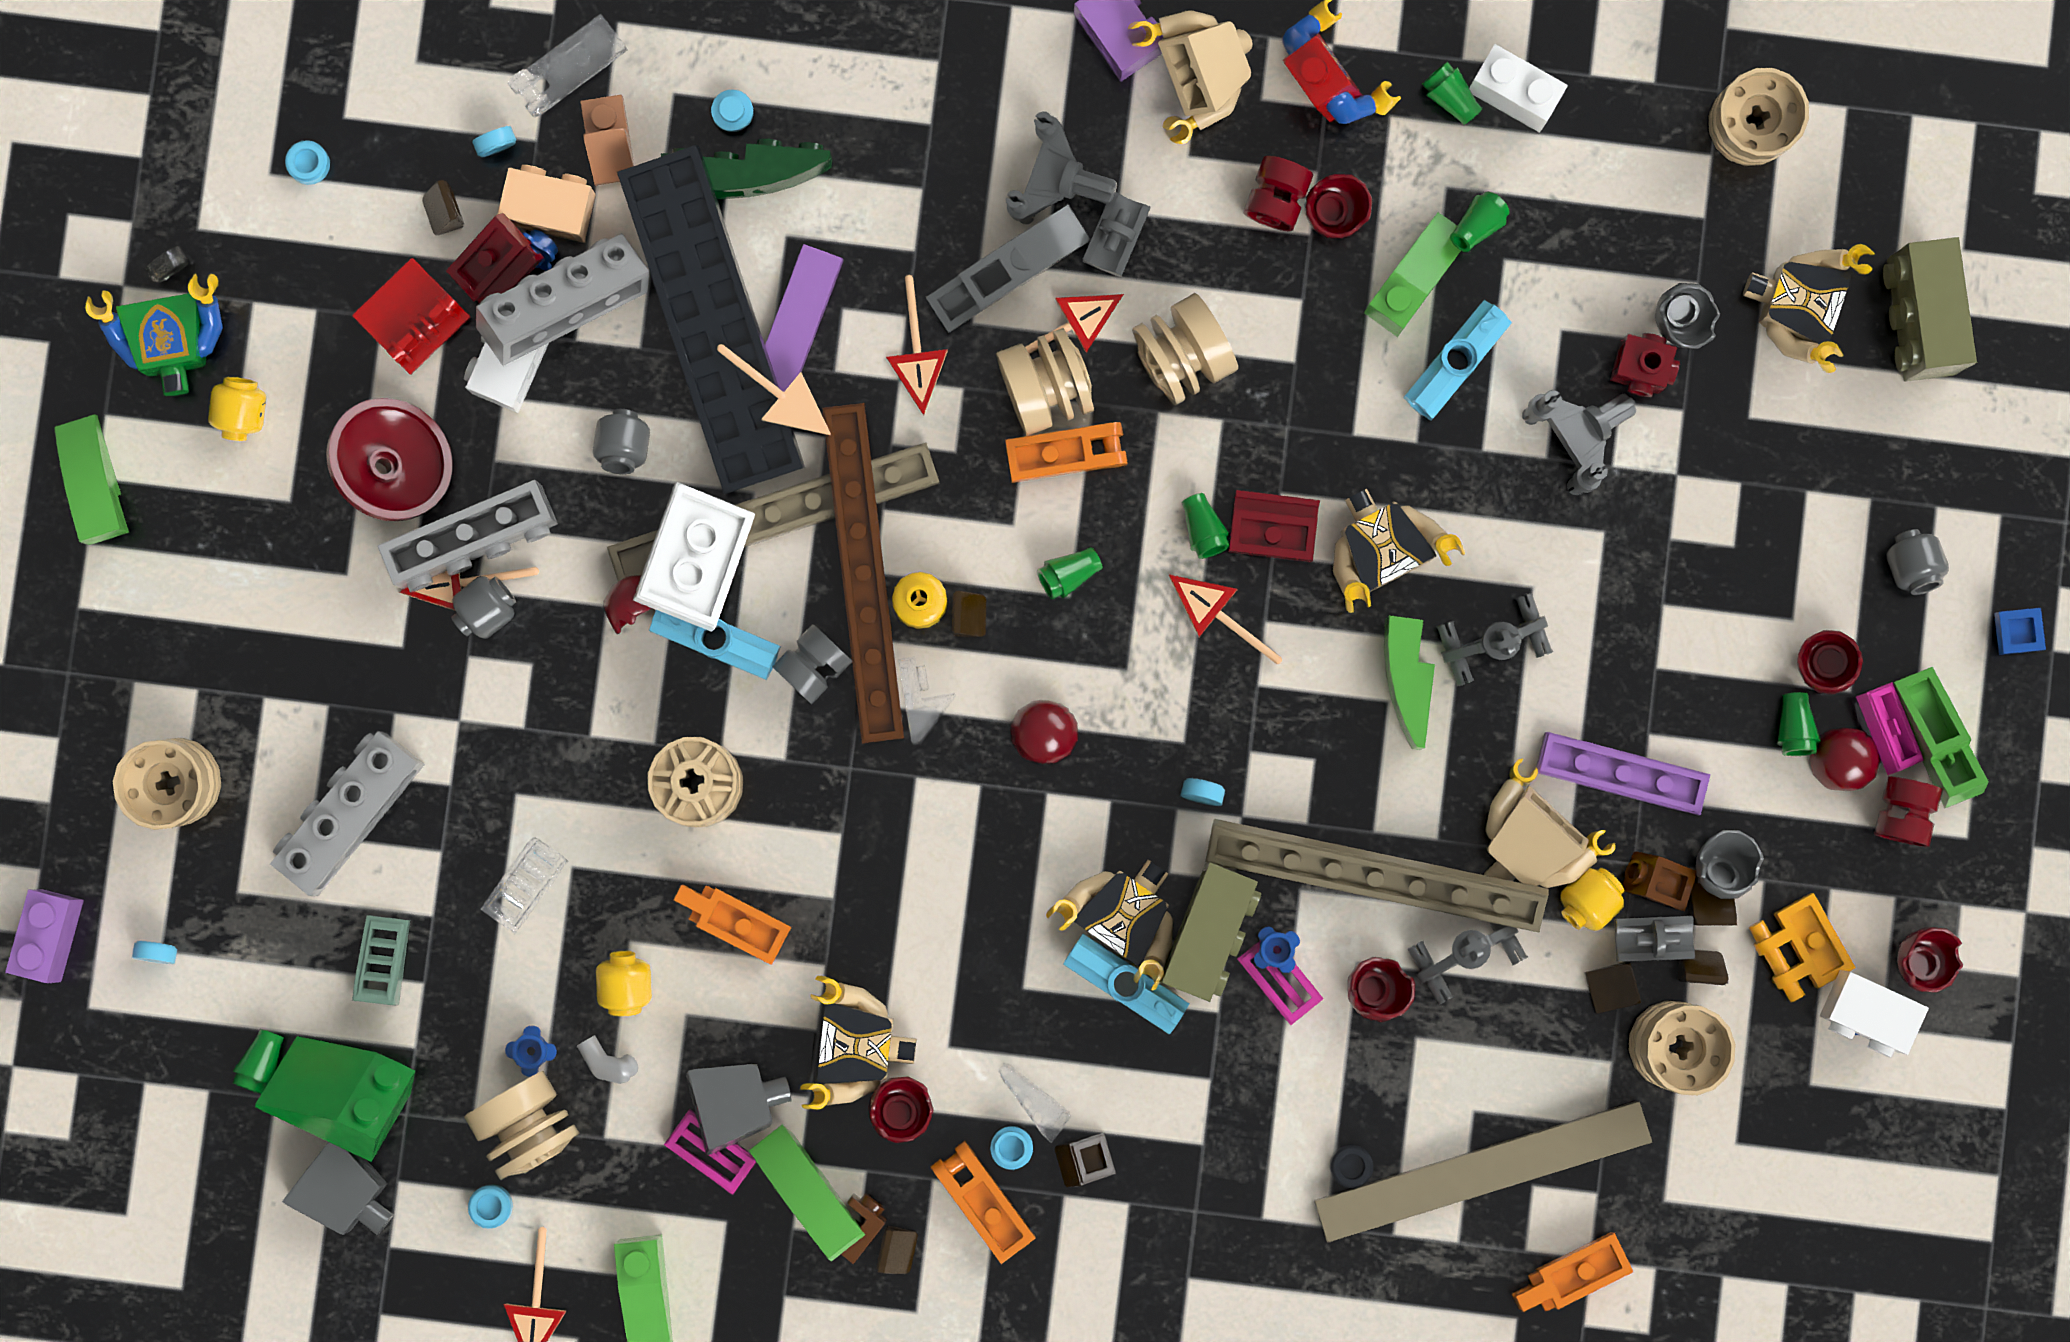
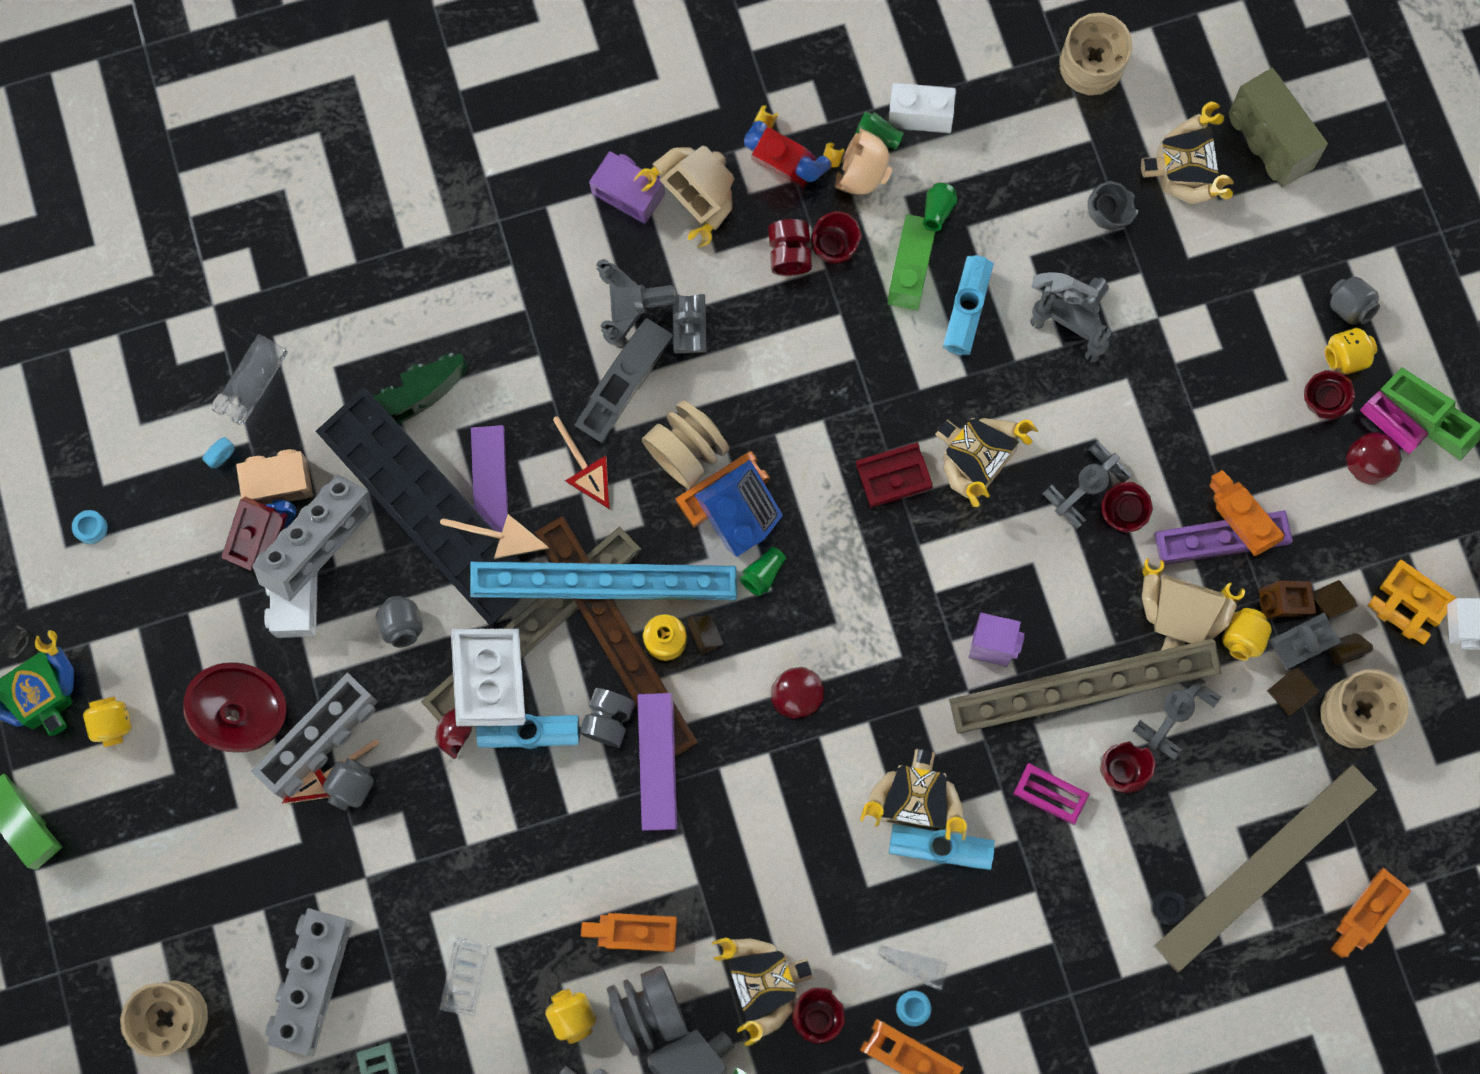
camera: 15 degrees left, 10 degrees down
(411, 316) = (209, 601): red hinge -> none
(442, 208) = (200, 516): dark brown slope -> none
(607, 138) = (298, 416): nougat slope -> none
(710, 1018) = (646, 1011): none -> flat silver wheel
(715, 796) = (578, 846): tan wheel -> none
(732, 110) = (380, 359): medium azure plate -> none
(847, 740) = (657, 761): none -> medium lavender tile
(876, 502) = (602, 581): none -> medium azure tile
(921, 712) = (701, 716): clear slope -> none
(1075, 487) = (740, 508): none -> blue slope
(1084, 1160) = (971, 993): dark brown slope -> none
(1085, 316) = (693, 390): piece -> none
(1184, 349) = (774, 378): tan wheel -> none
(1203, 792) = (932, 683): medium azure tile -> none
(1204, 528) = (846, 498): green cone -> none
(1204, 603) = (870, 551): piece -> none
(1210, 932) = (985, 779): olive brick -> none
(1286, 942) = (1043, 763): blue plate -> none
(1298, 777) = (996, 640): none -> medium lavender brick
(1408, 679) = (1039, 537): bright green slope -> none
(1414, 130) = (864, 165): none -> light nougat cylinder
(1526, 688) = (1127, 507): none -> dark red hair
(1585, 401) = (1064, 287): none -> light grey slope
(1631, 367) = (1099, 250): dark red brick -> none
(1659, 759) = (1244, 514): none -> orange hinge
(1729, 864) = (1331, 565): dark grey hair -> none
(1797, 726) = (1329, 449): green cone -> none
(1880, 621) = (1350, 351): none -> yellow head
(1904, 826) = (1432, 461): dark red wheel -> none
(2020, 631) = (1449, 316): blue plate -> none

